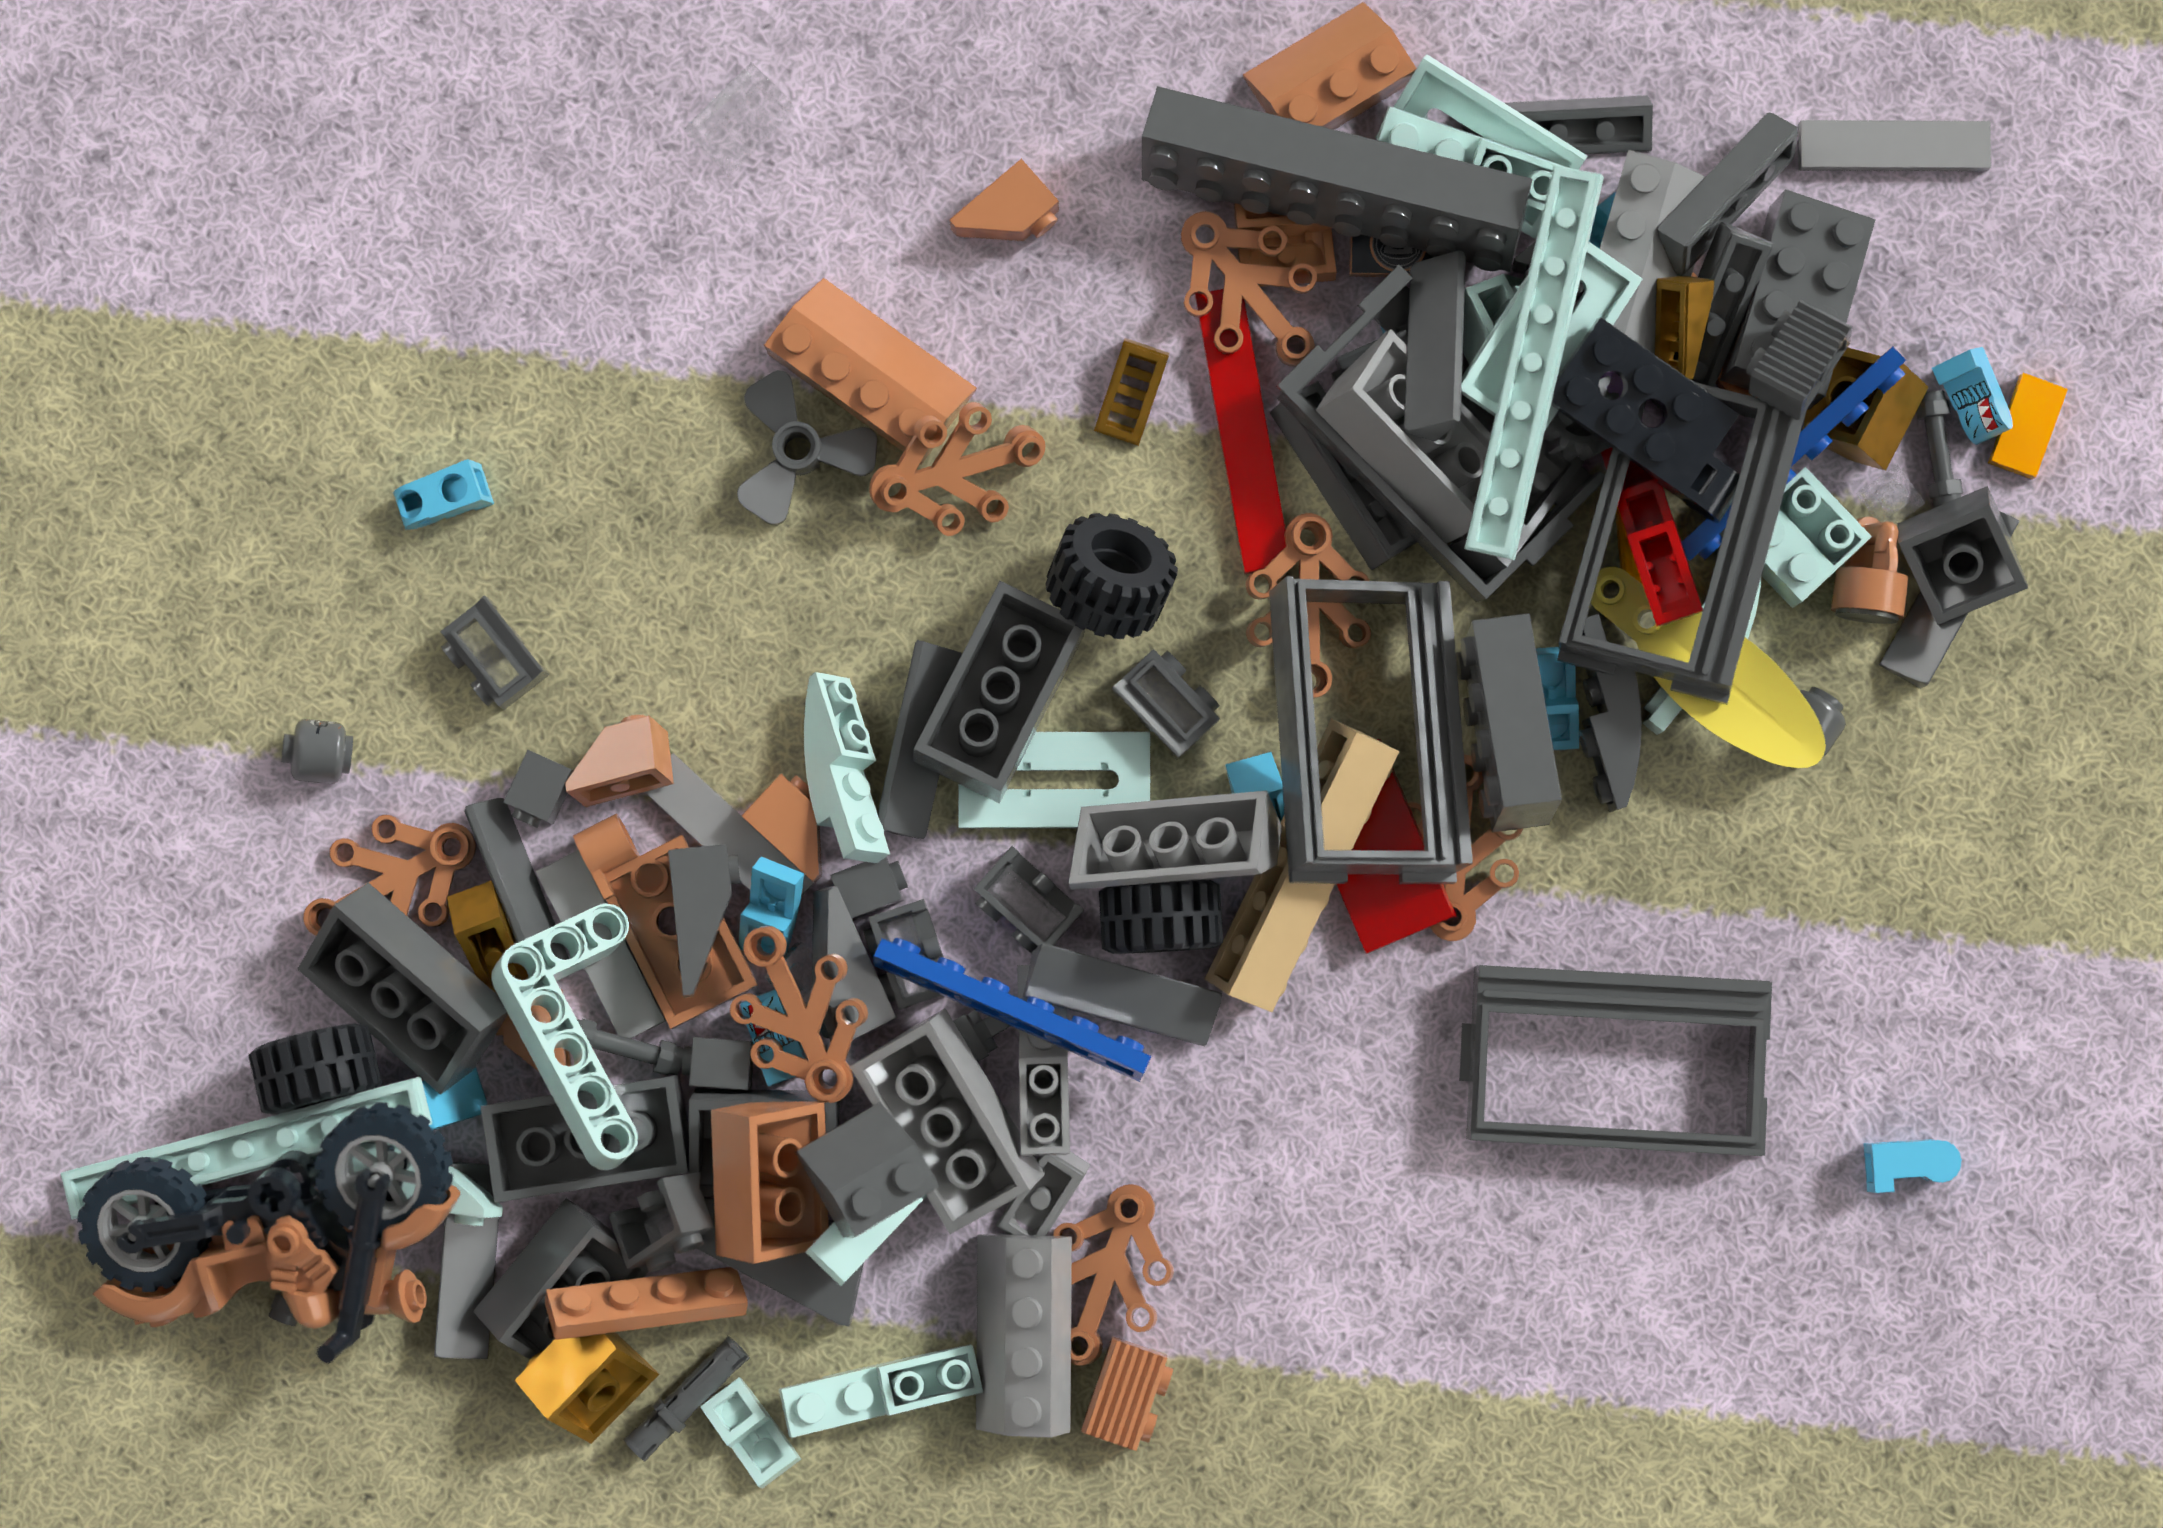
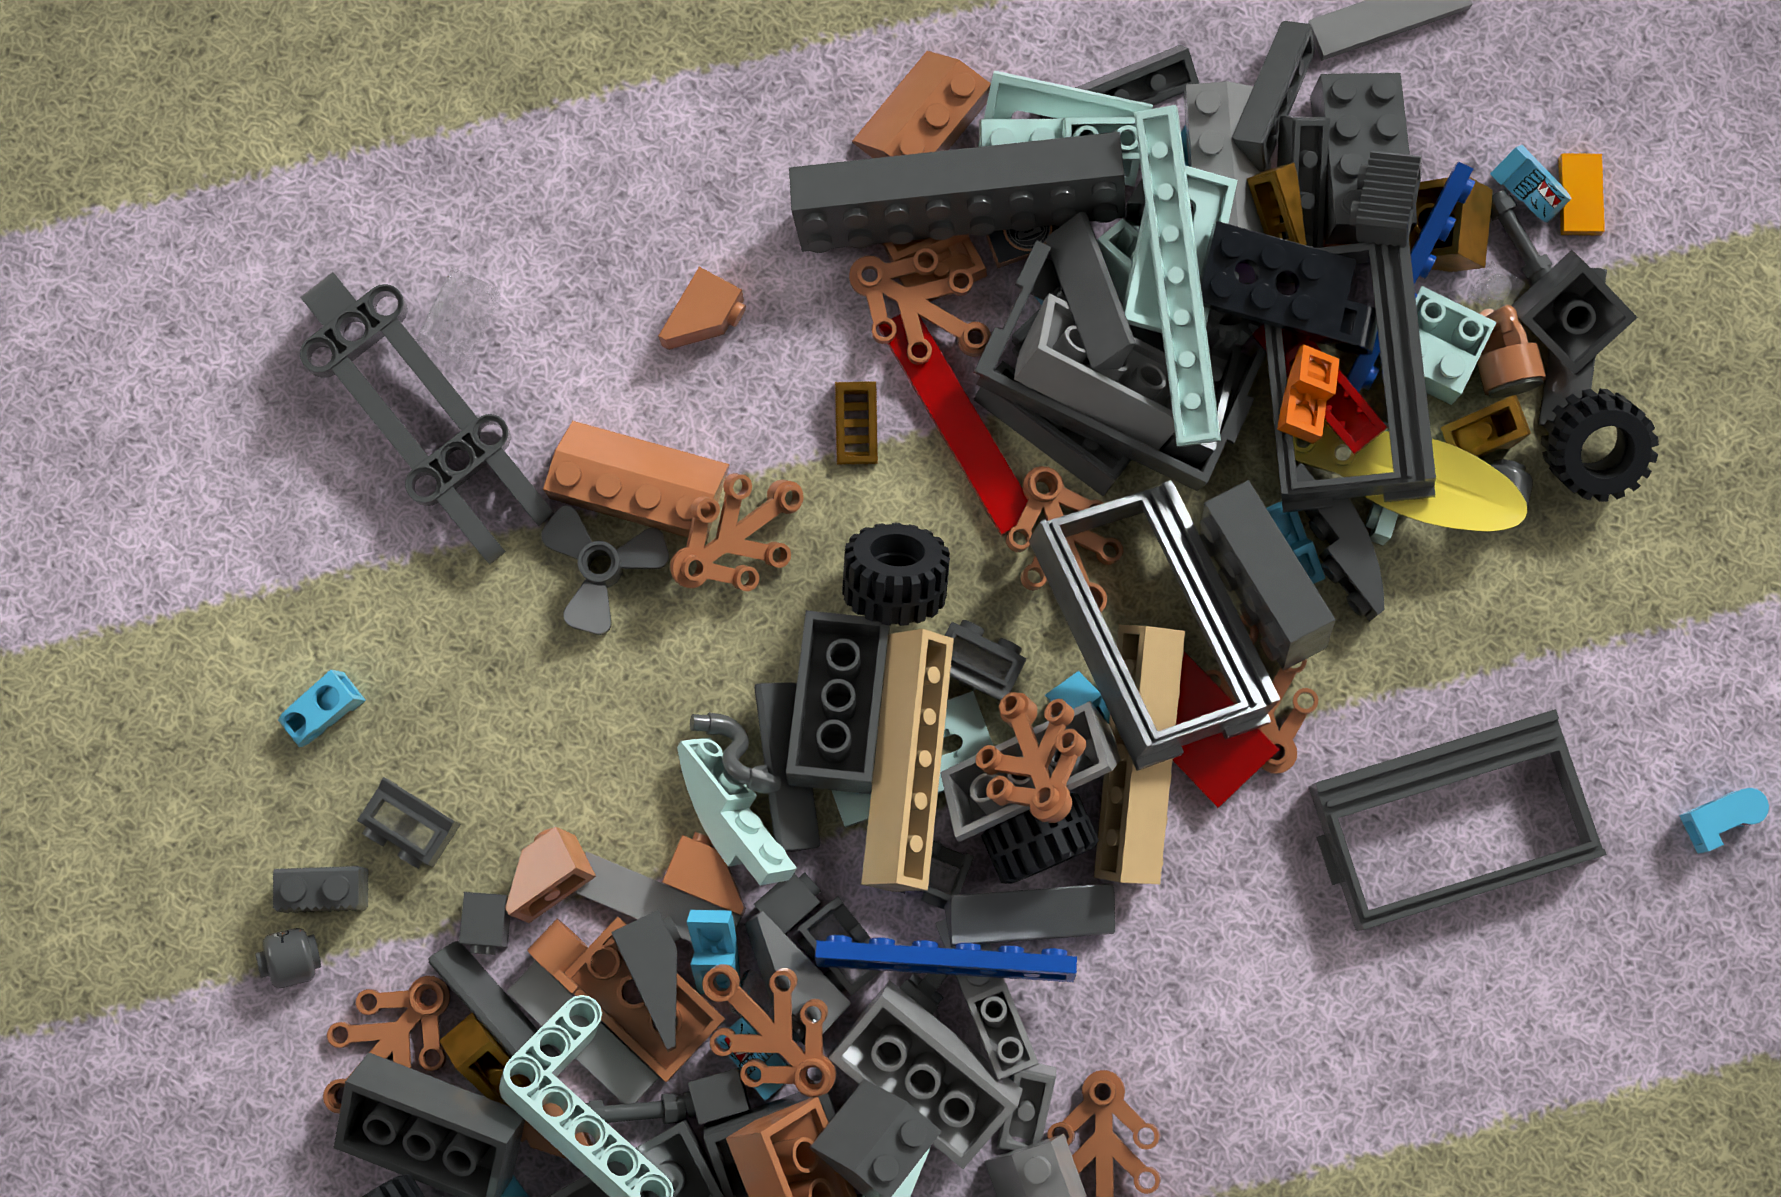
camera: 20 degrees left, 5 degrees down
(376, 691) = (320, 889): none -> dark grey brick
(611, 63) = (335, 310): none -> dark grey beam
(880, 742) = (755, 778): none -> dark grey animal
(1049, 782) = (907, 761): none -> tan brick
(1183, 879) = (1051, 797): none -> nougat plant
(1627, 543) = (1306, 392): none -> orange slope
(1817, 650) = (1489, 429): none -> pearl gold slope
(1937, 747) = (1621, 466): none -> black tyre

